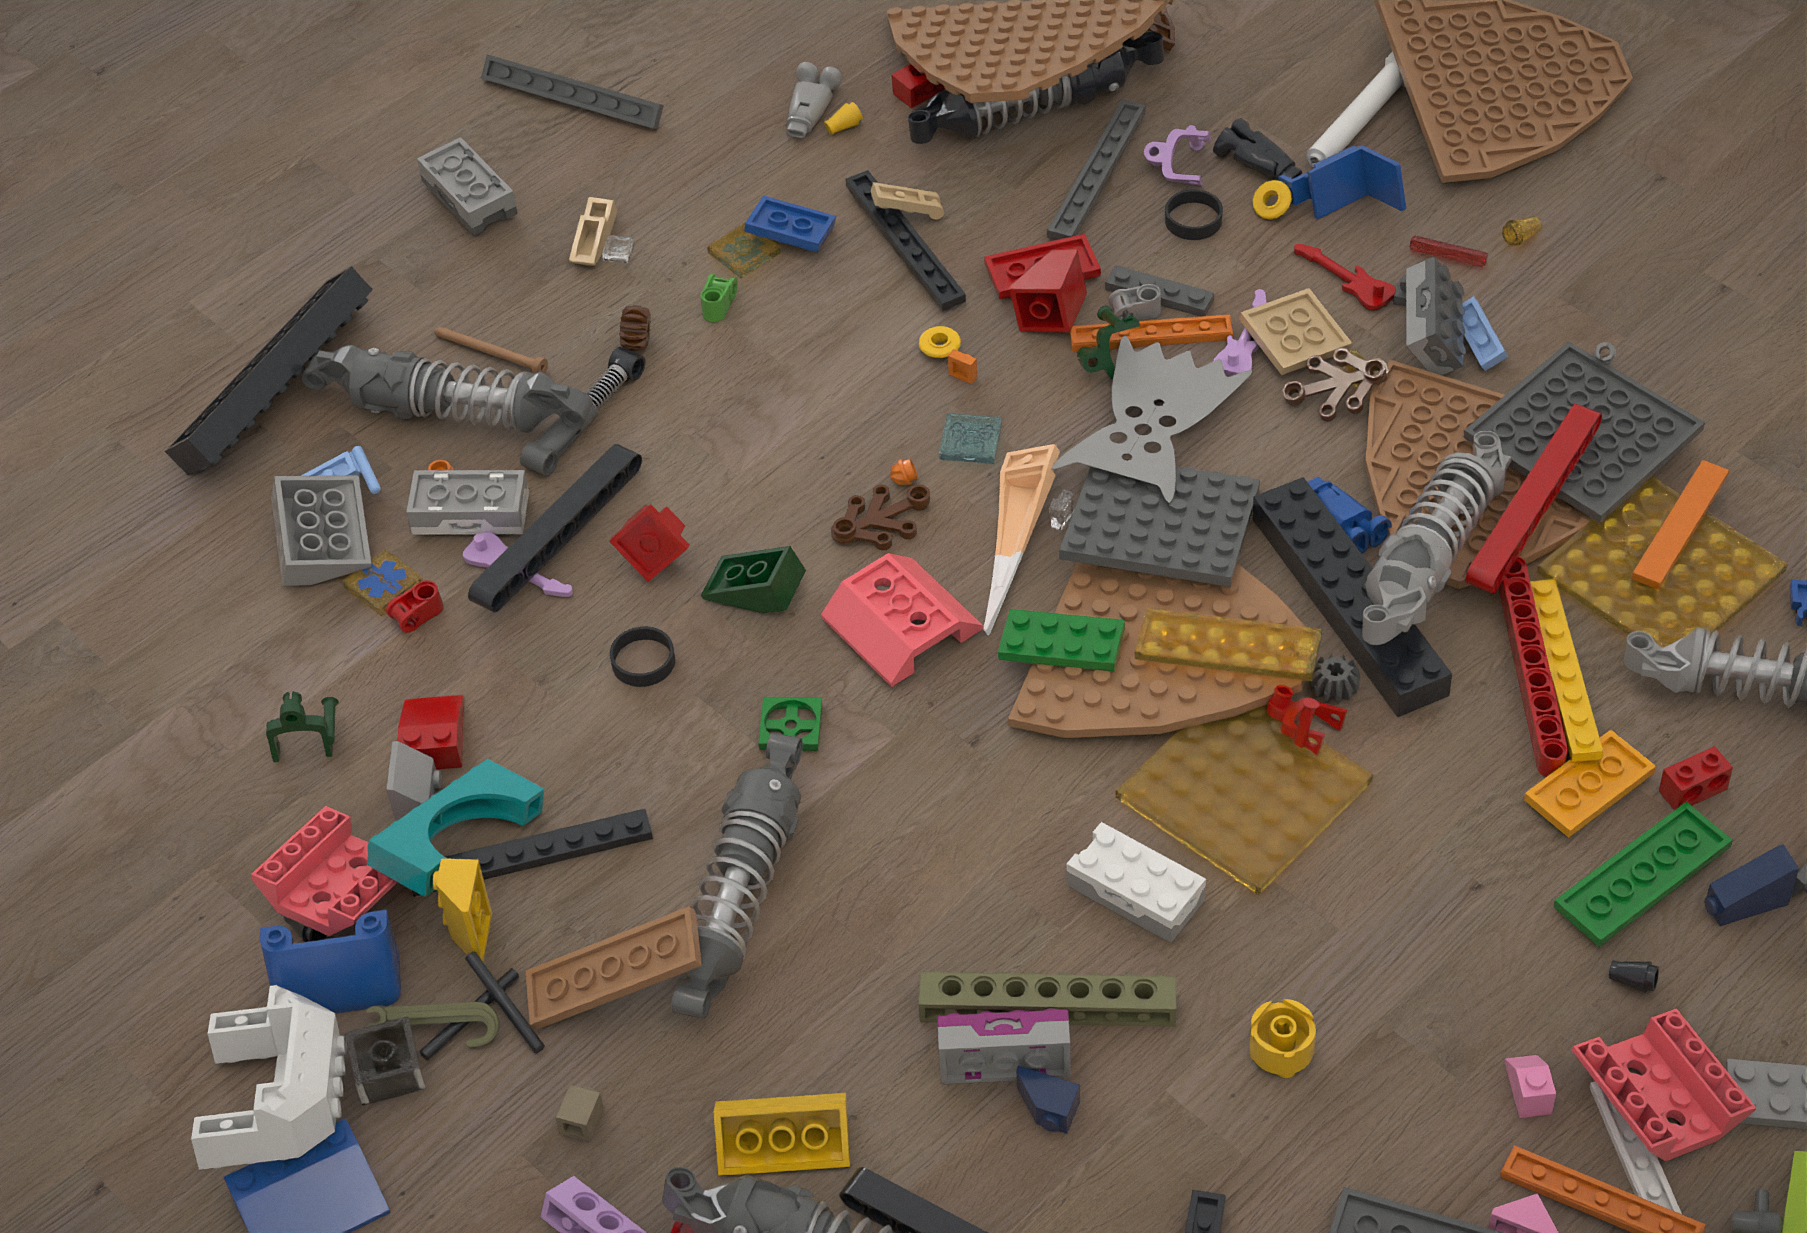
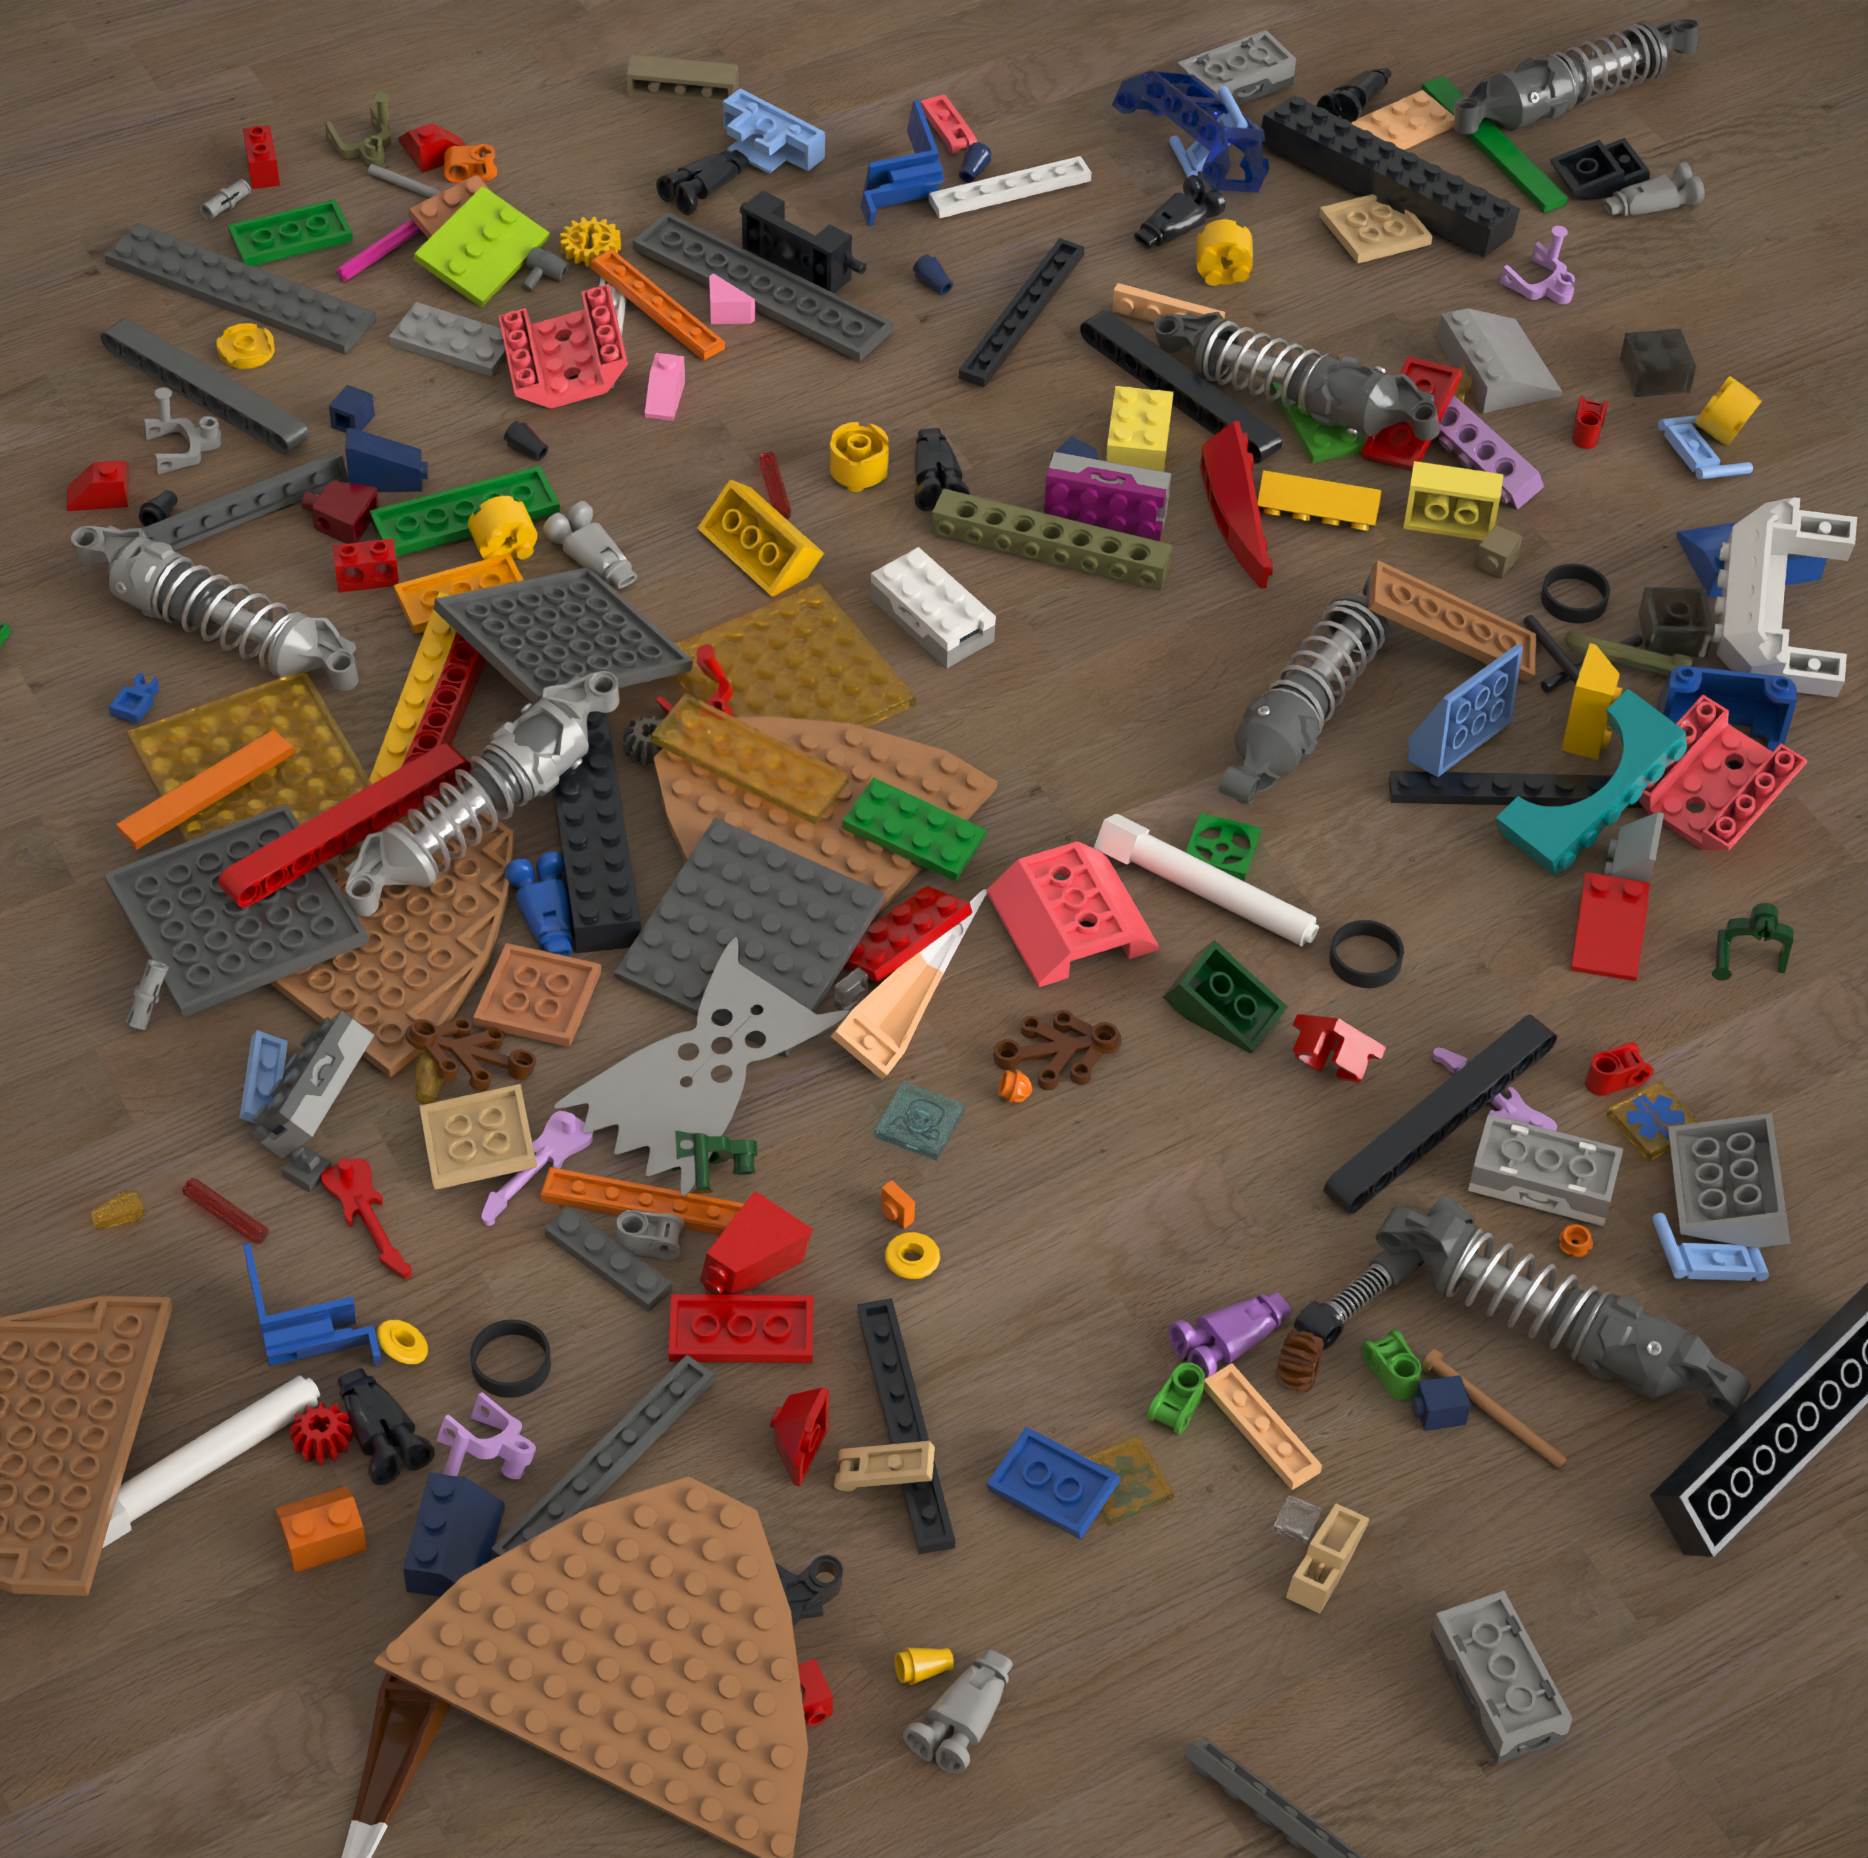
camera: 170 degrees left, 0 degrees up
(485, 1064) = (1579, 572): none -> black tyre
(529, 336) = (1441, 1403): none -> dark blue brick
(567, 352) = (1393, 1364): none -> bright green piece
(585, 866) = (1467, 716): none -> medium blue slope
(634, 1143) = (1452, 501): none -> light yellow brick
(655, 296) = (1262, 1426): none -> light nougat plate
(693, 344) = (1230, 1329): none -> medium lavender piece
(796, 674) = (1132, 843): none -> white brick
(871, 1095) = (1233, 500): none -> red wedge
(973, 211) = (801, 1430): none -> red slope
(999, 1163) = (1139, 427): none -> light yellow brick
(1033, 565) = (906, 932): none -> red plate
(1172, 103) = (451, 1533): none -> dark blue slope
(1198, 1061) = (935, 469): none -> black piece
(1262, 94) = (321, 1528): none -> orange slope
(1294, 137) = (321, 1433): none -> red gear
(1311, 447) = (537, 994): none -> nougat plate
(1336, 920) = (759, 539): none -> yellow slope
(1356, 997) = (775, 484): none -> clear red axle
(1459, 724) = (561, 628): none -> dark grey plate
(1497, 864) = (589, 544): none -> light grey piece
(1586, 838) = (503, 528): none -> yellow brick
(1758, 831) = (342, 510): none -> dark red torso

